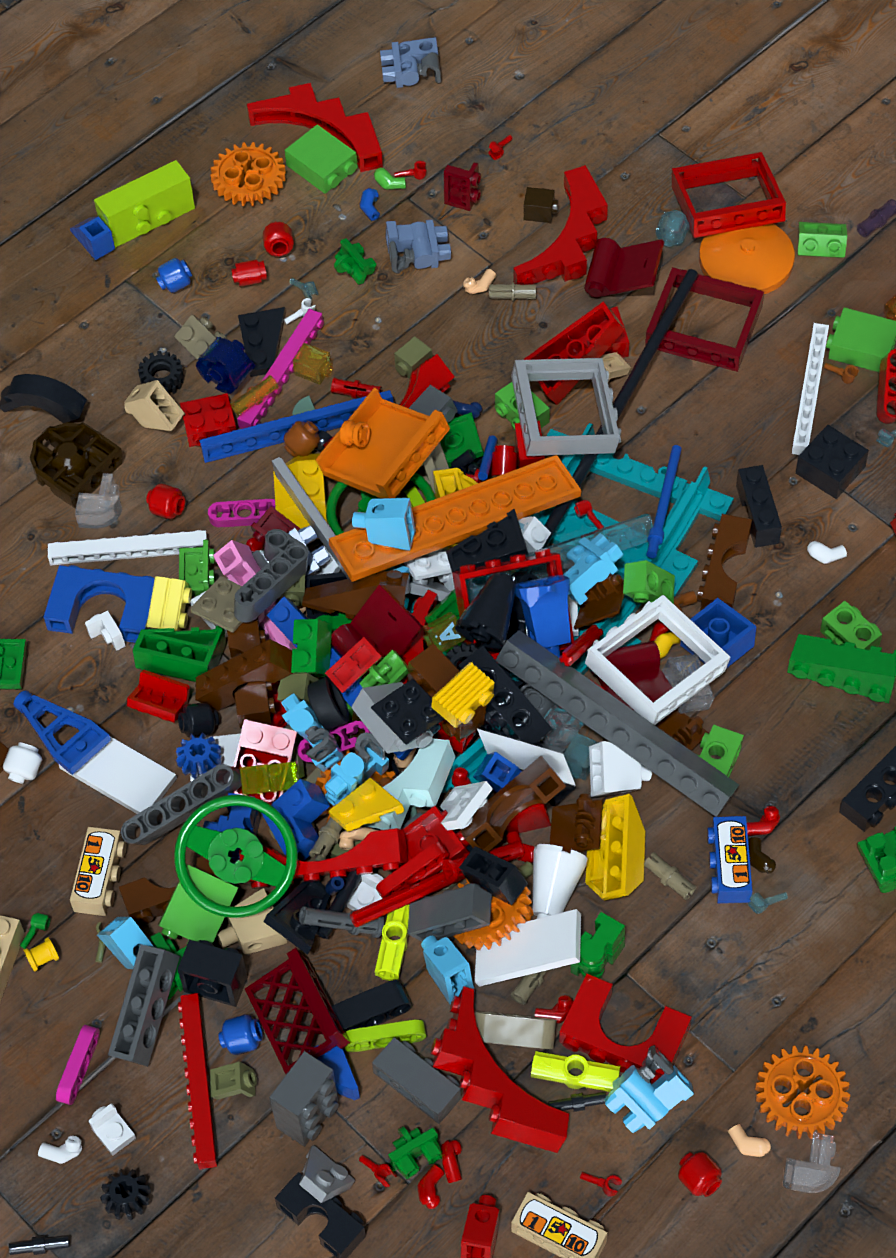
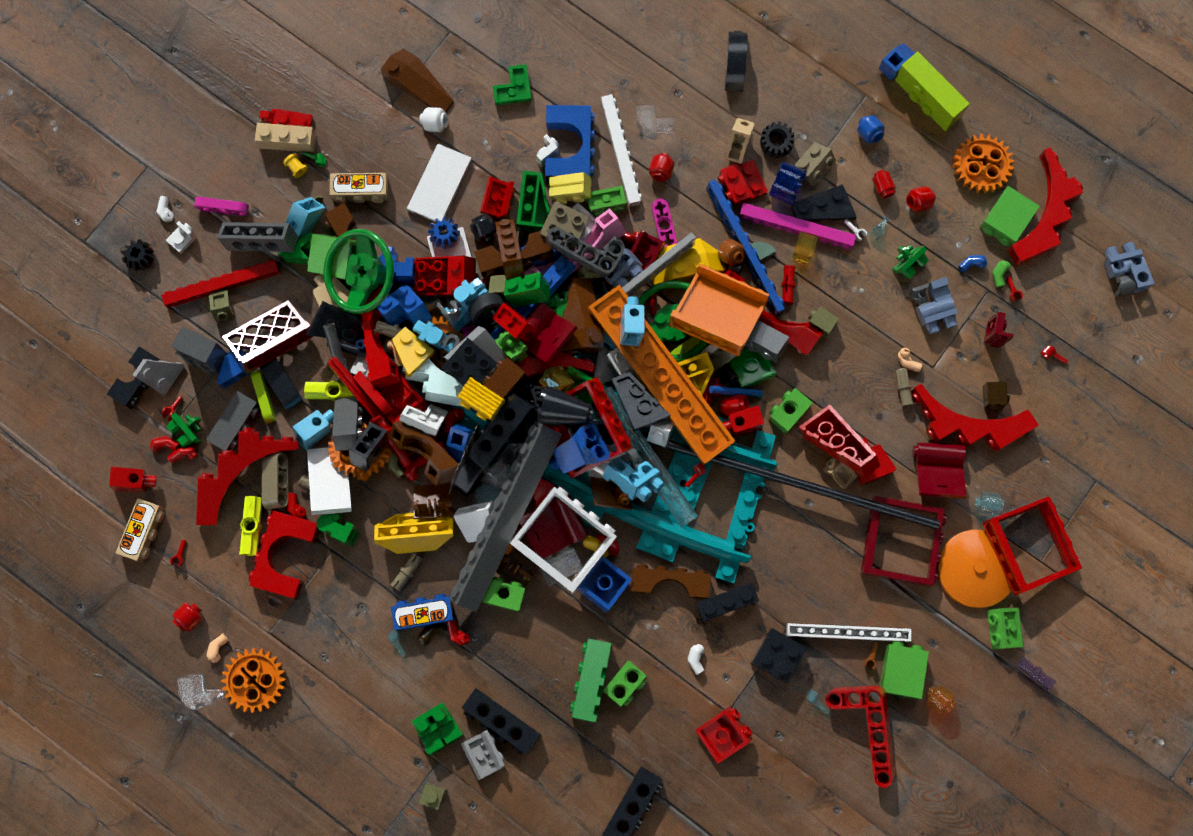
camera: 80 degrees right, 20 degrees up
(39, 1245) = (102, 211): black bar -> none
(75, 472) = (685, 86): dark brown connector -> none
(76, 750) = (449, 155): blue plate -> none
(170, 805) = (405, 230): dark grey beam -> none
(213, 972) = (289, 276): black brick -> none
(240, 1034) = (252, 304): blue head -> none
(254, 395) = (762, 210): clear yellow pin -> none
(268, 777) = (427, 281): clear neon green slope -> none
(354, 433) = (725, 287): orange wheel -> none
(464, 408) = (782, 366): dark blue arm -> none
(554, 878) = (388, 491): white cone -> none
(565, 369) = (794, 470): light grey window -> none
(578, 1101) = (232, 530): black bar -> none
(580, 645) = (564, 481): red axle -> none
(647, 582) = (630, 525): bright green brick -> none
(648, 1101) = (232, 576): medium azure hips -> none
(656, 533) = (677, 526): blue bar -> none
(685, 599) = (634, 551): dark orange arm -> none

